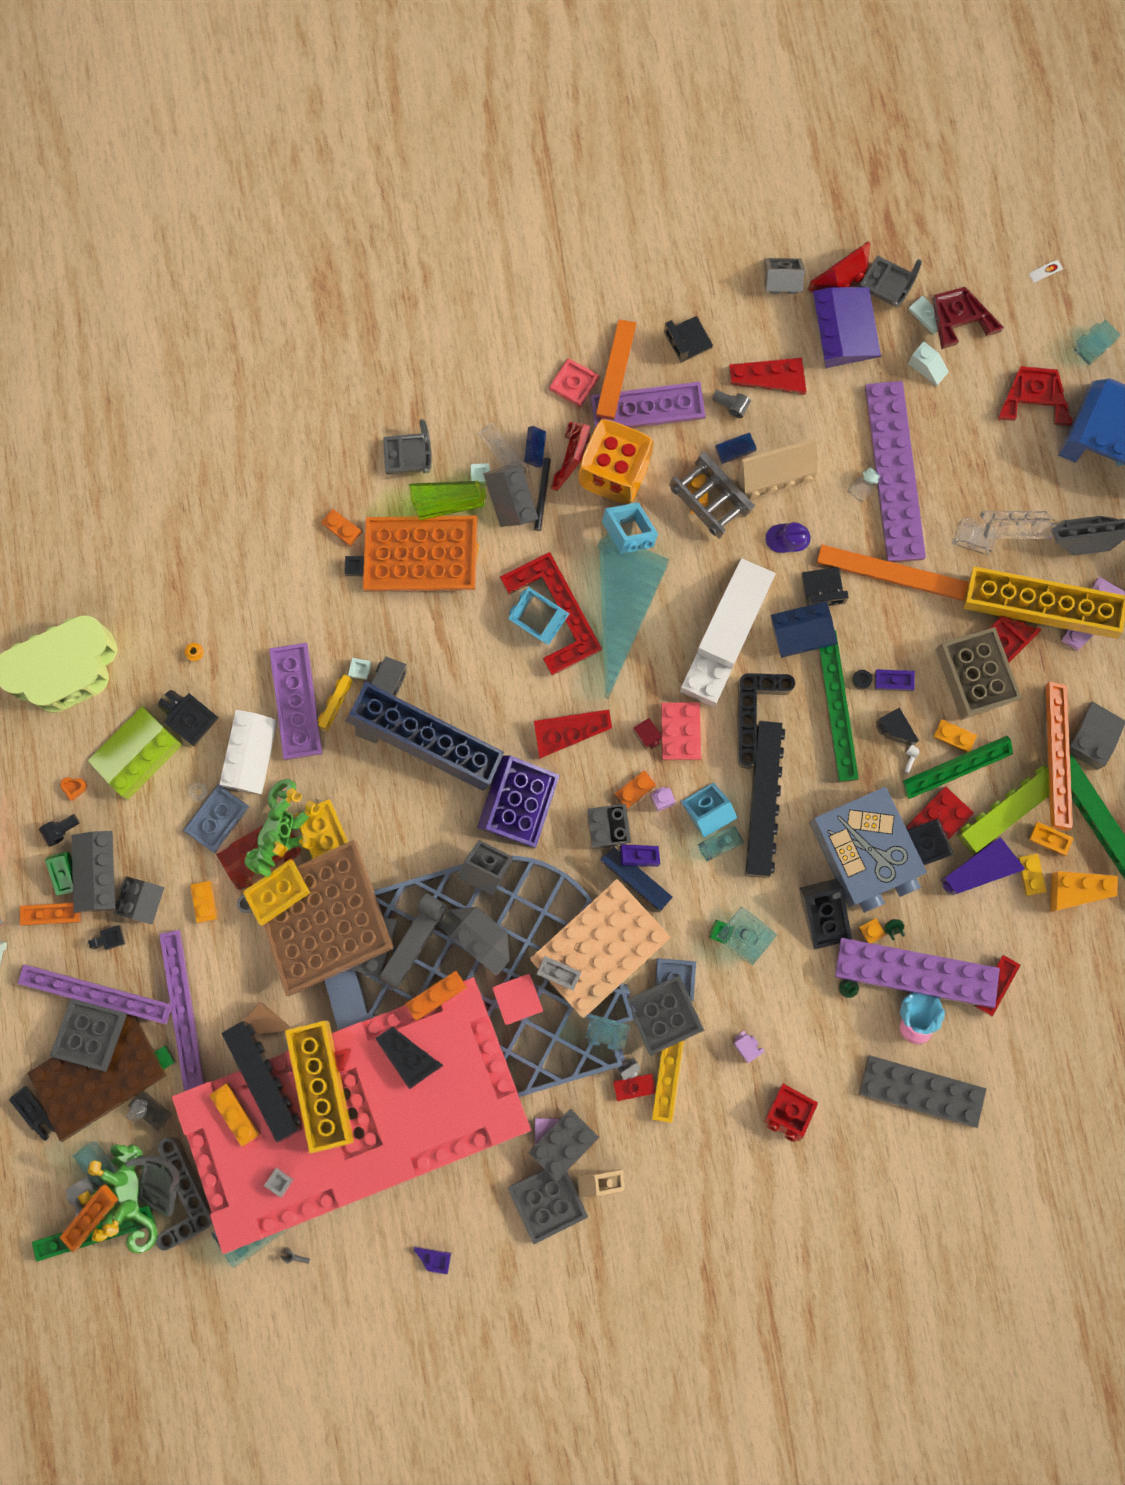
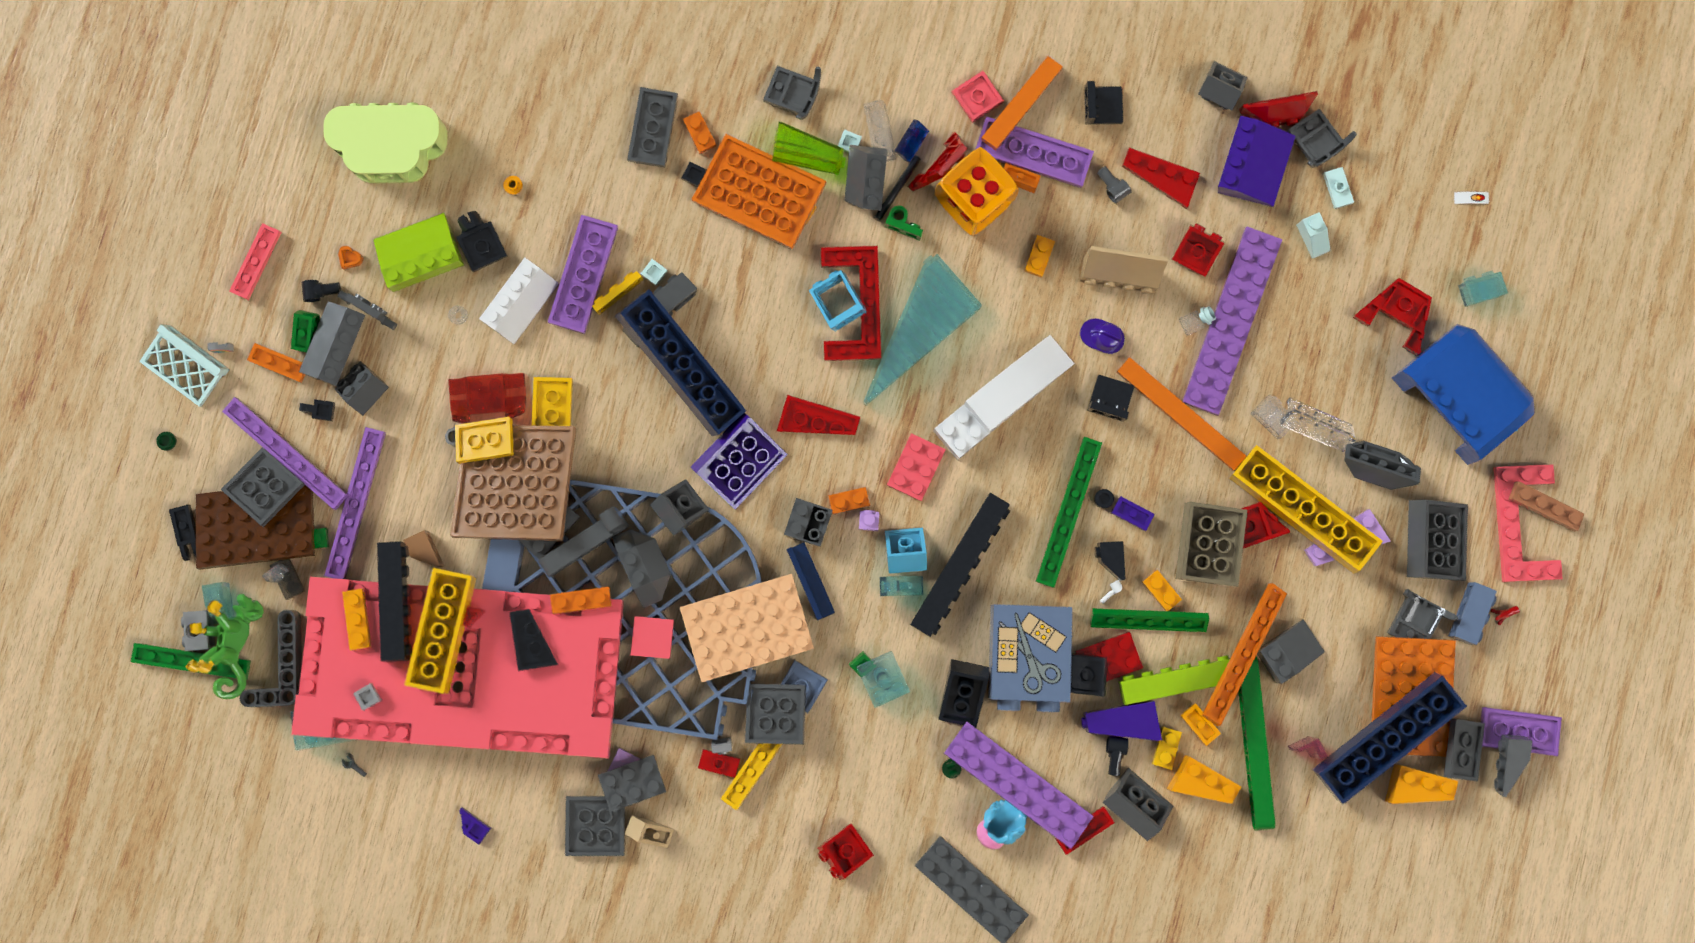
camera: 20 degrees right, 5 degrees up
(89, 1218) = (191, 647): orange plate -> none
(117, 824) = (364, 305): none -> dark grey plate
(157, 1183) = (264, 645): dark grey piece -> none
(203, 902) = (418, 416): light orange plate -> none
(216, 818) = (463, 347): sand blue tile -> none
(275, 833) = (508, 386): bright green animal -> none
(297, 542) = (652, 127): none -> dark grey plate
(559, 973) = (698, 632): light grey plate -> none
(563, 525) = (911, 230): none -> green plate
(607, 1032) = (716, 704): clear light blue slope -> none
(628, 513) = (961, 243): medium azure window -> none
(639, 855) = (823, 562): dark purple plate -> none
(647, 734) = (884, 456): dark red brick -> none
(655, 432) = (1023, 178): none -> orange plate
(723, 483) = (1062, 250): flat silver fence -> none
(735, 448) = (1095, 229): clear blue plate -> none
(747, 1046) = (835, 776): lavender brick -> none
(751, 711) = (987, 480): black beam -> none
(803, 629) = (1072, 428): dark blue slope -> none
(834, 422) = (1198, 249): none -> red plate
(872, 931) = (997, 728): light orange plate -> none
(894, 927) = (1020, 735): dark green plate -> none
(958, 309) = (1371, 196): dark red wing -> none
(988, 897) = (1117, 748): none -> black pin
(1033, 938) = (1138, 805): none -> dark grey slope

